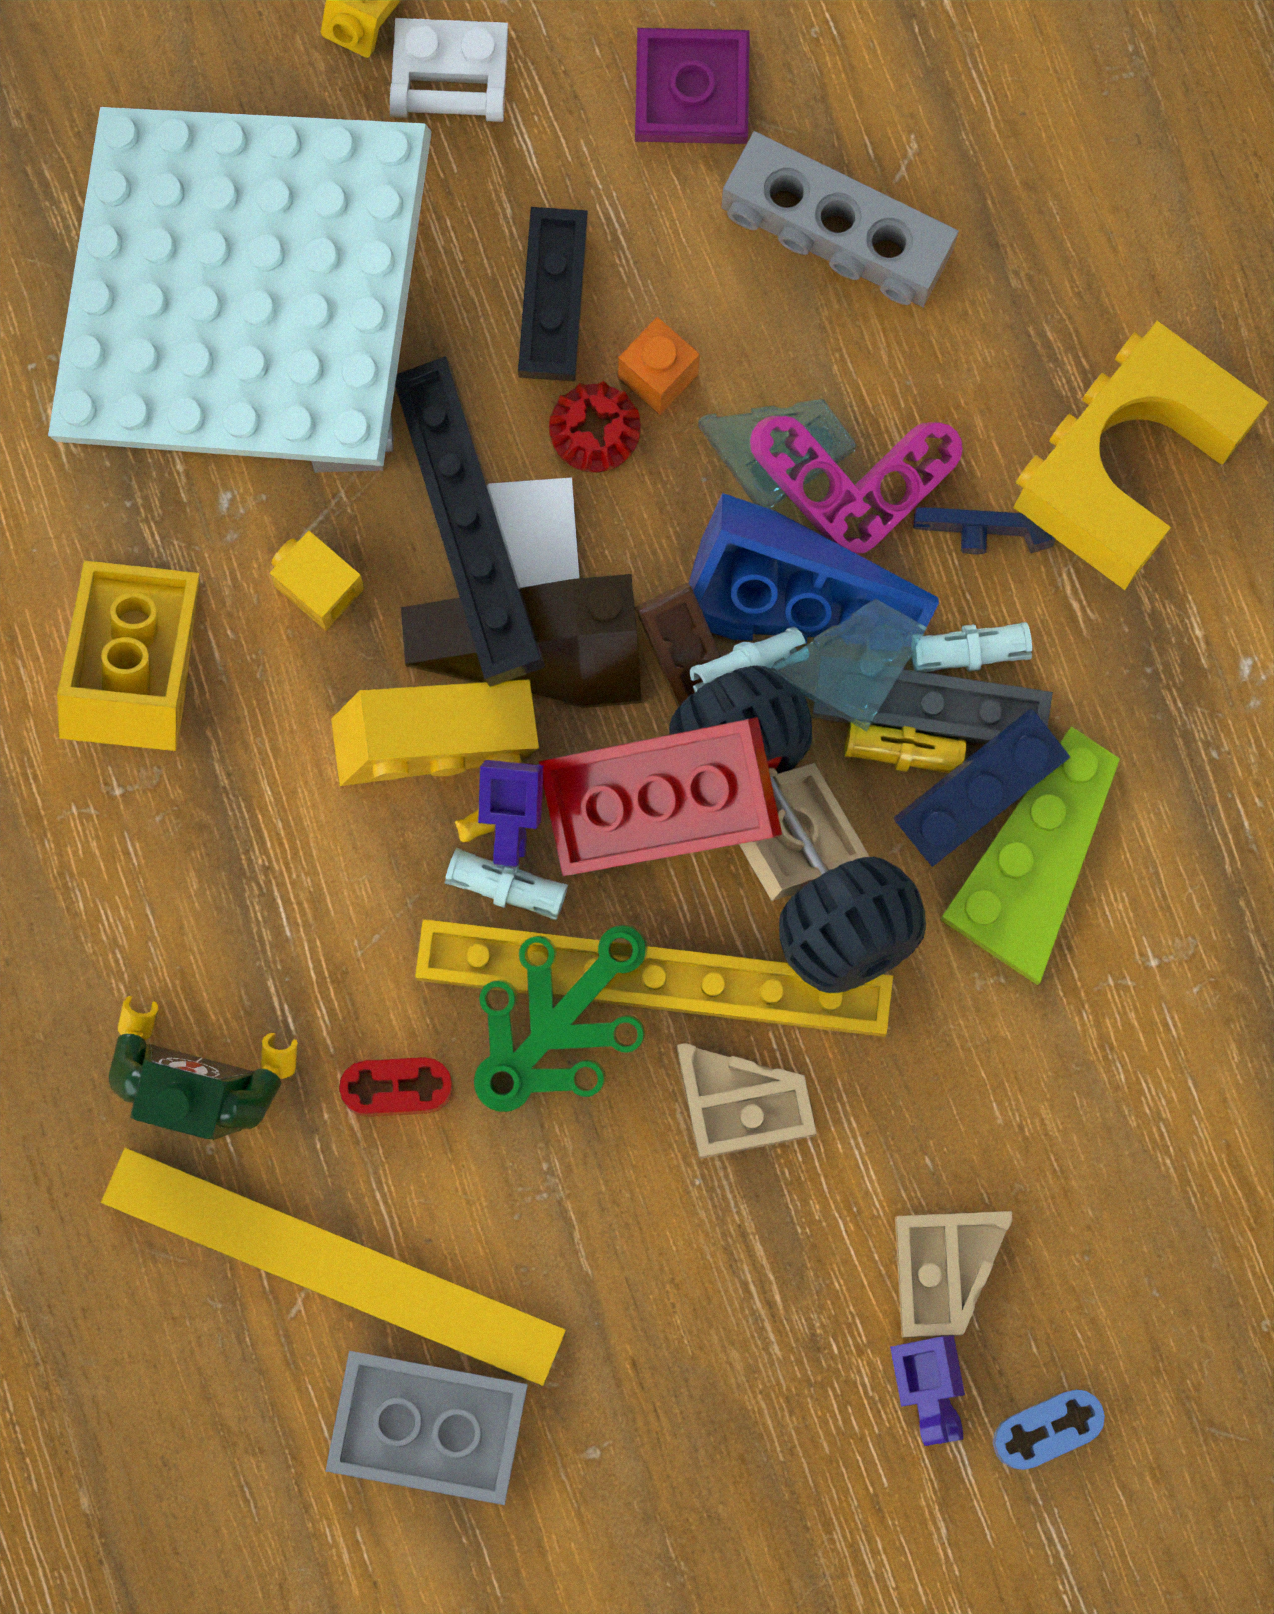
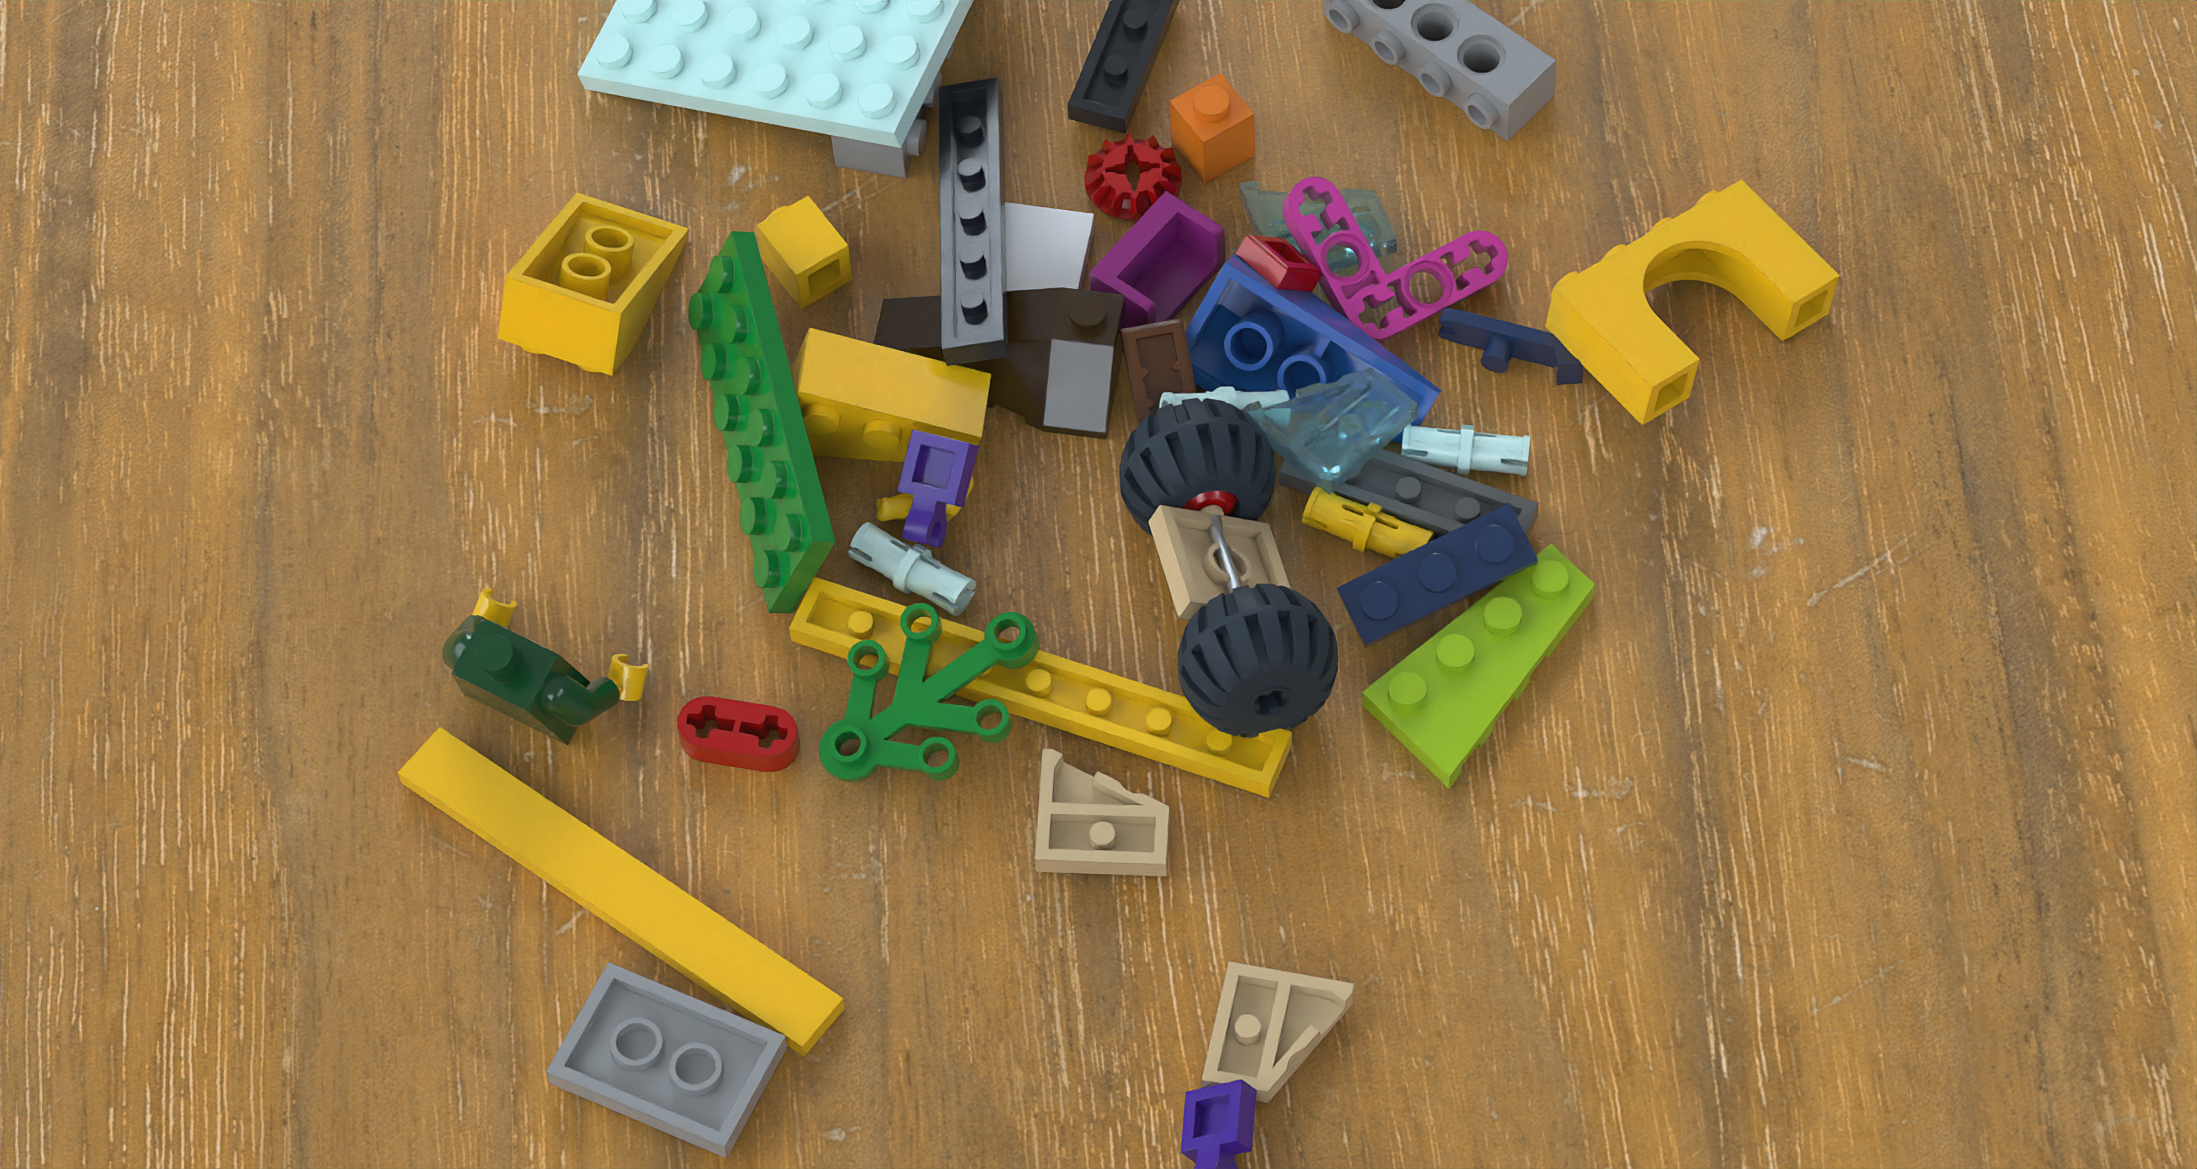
camera: 20 degrees right, 20 degrees down
(333, 779) = (761, 423): none -> green plate
(646, 522) = (1161, 261): none -> magenta panel
(660, 797) = (1091, 498): plate -> none
(763, 507) = (1279, 263): none -> red tile

